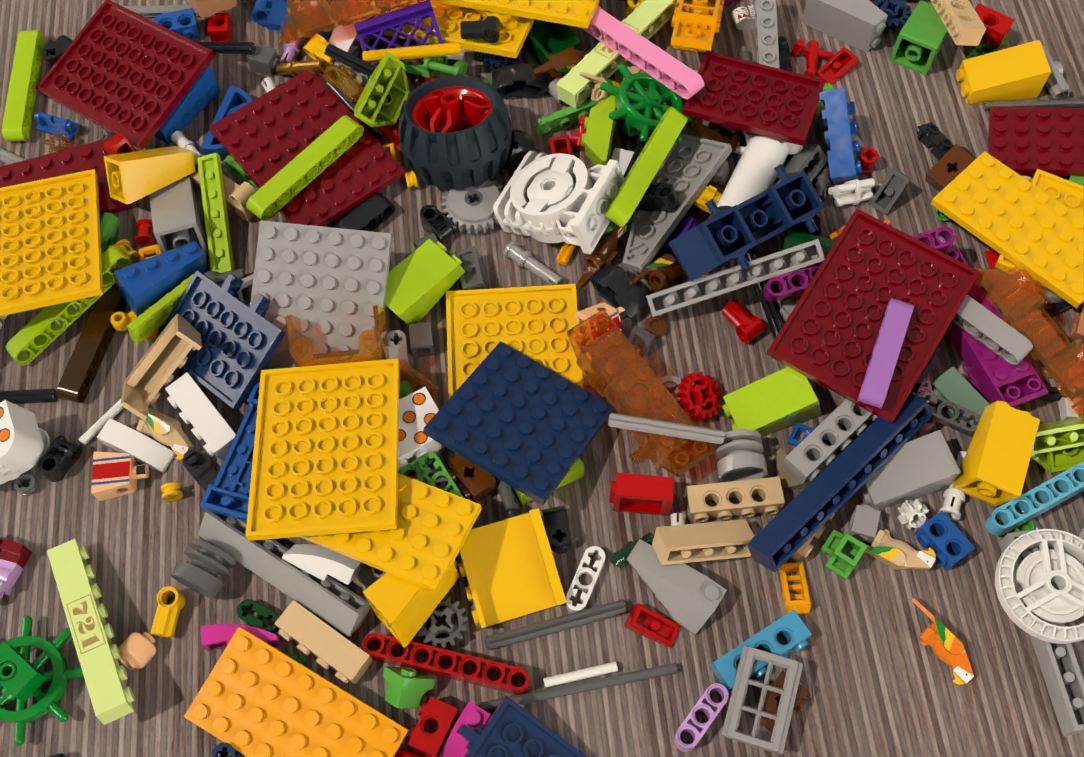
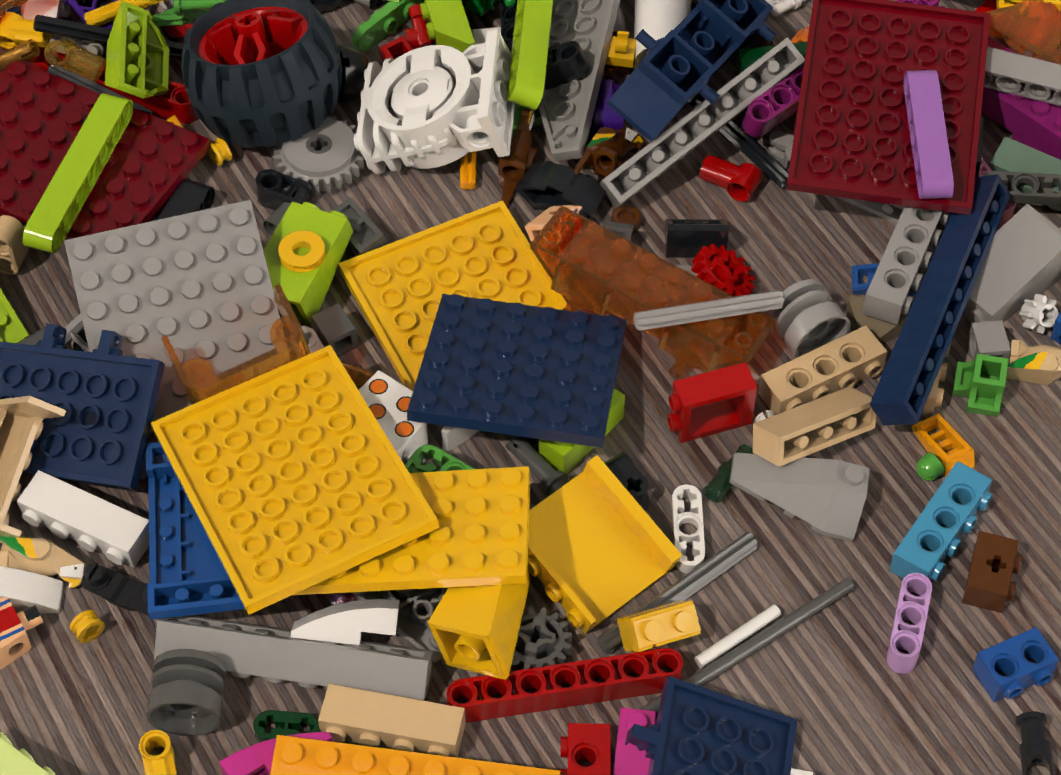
camera: 25 degrees left, 10 degrees down
(406, 686) = (529, 726): bright green brick -> none
(416, 288) = (306, 262): none -> yellow piece
(476, 488) = (483, 452): reddish brown brick -> none
(525, 260) = (422, 197): light grey pin -> none
(526, 648) = (658, 626): none -> yellow brick
(652, 625) = (795, 549): red slope -> none
(696, 357) = (688, 236): none -> black slope
(773, 402) = (817, 246): lime slope -> none
(774, 602) = (929, 467): none -> bright green hinge
(785, 707) = (1002, 560): light grey piece -> none

